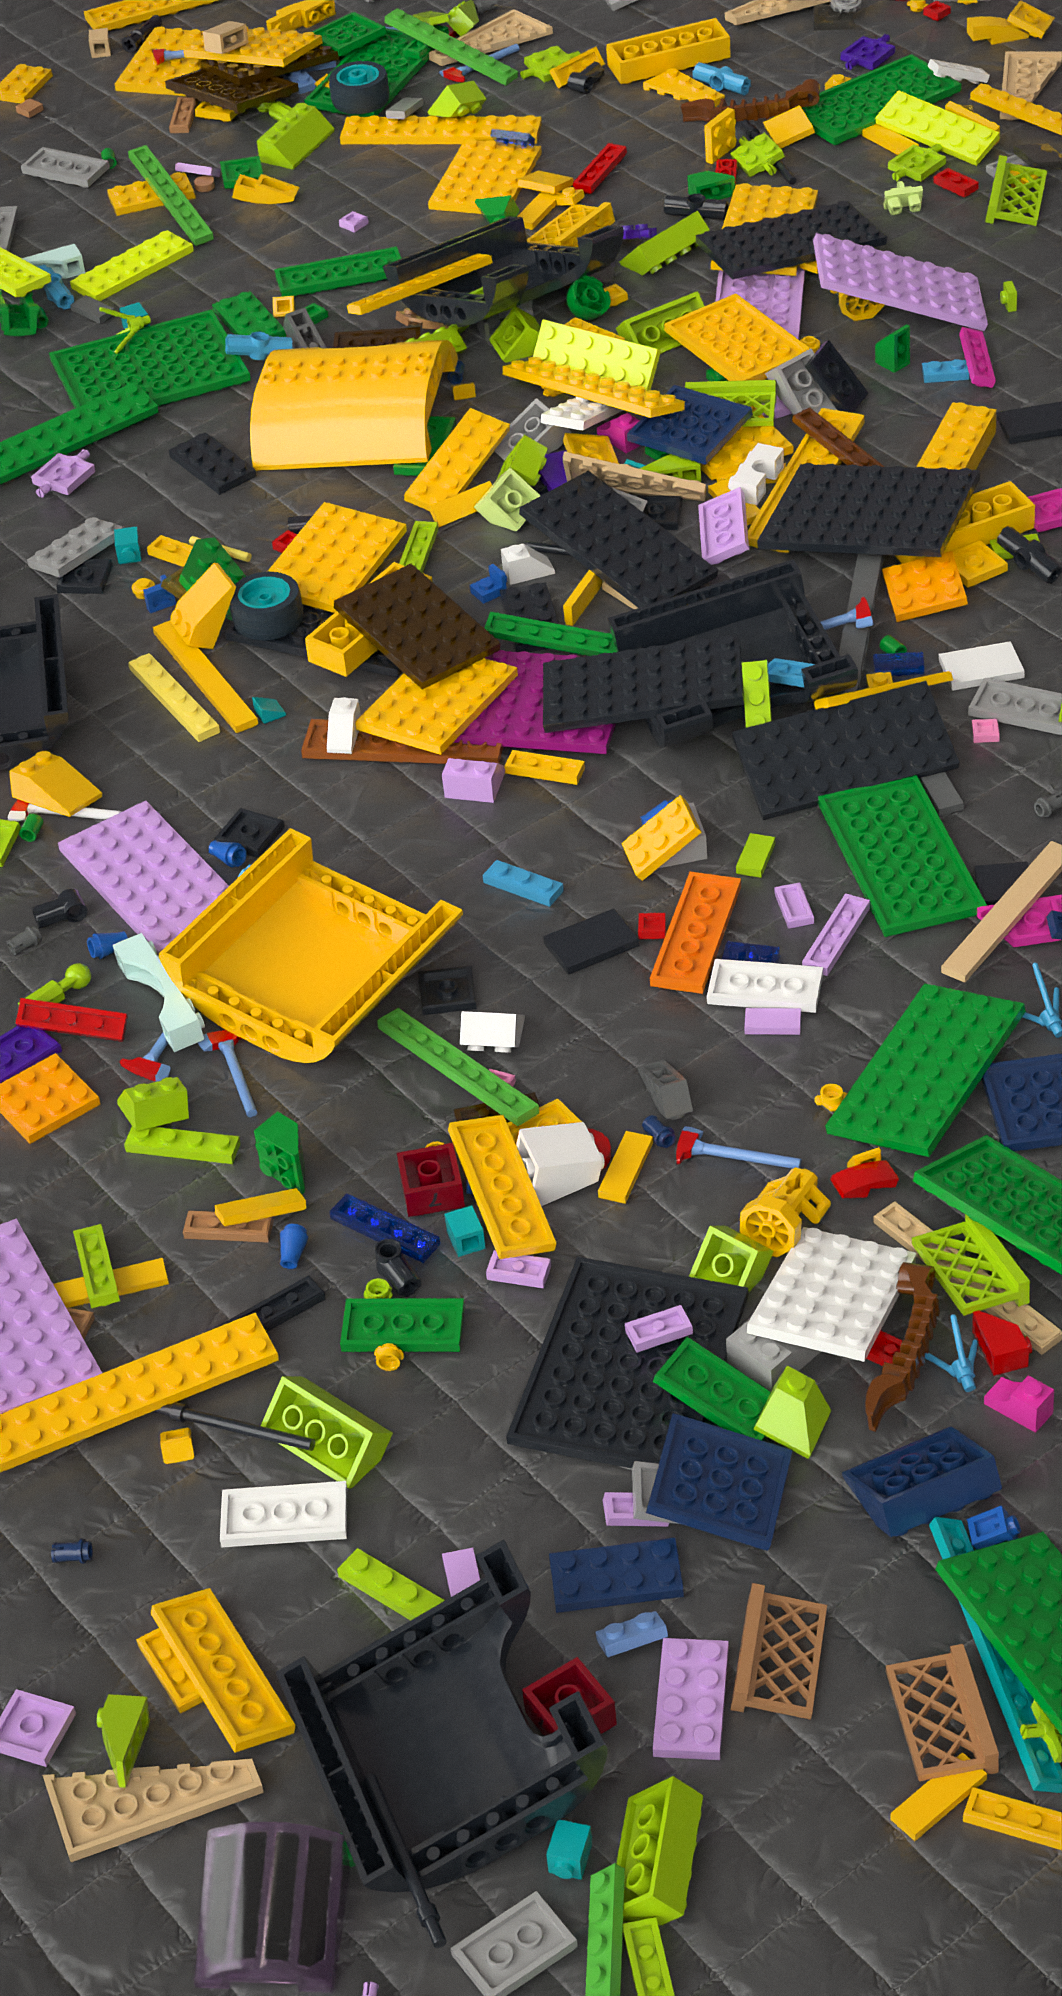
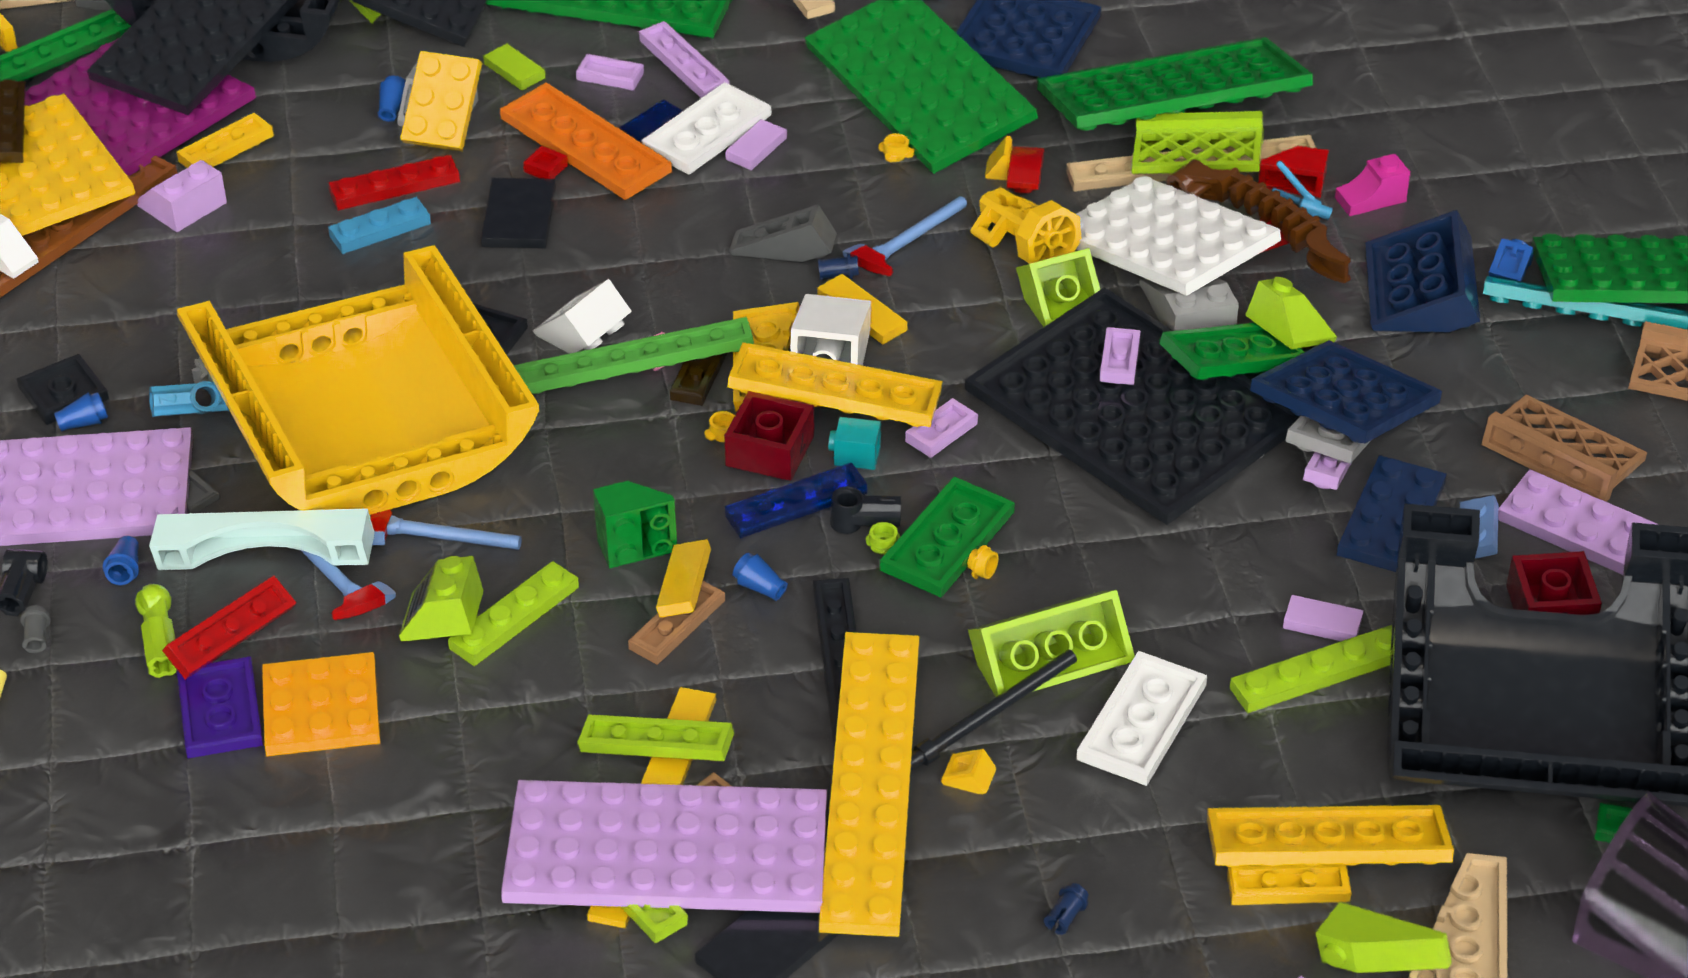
camera: 65 degrees left, 0 degrees up
(575, 865) = (393, 182): none -> red plate

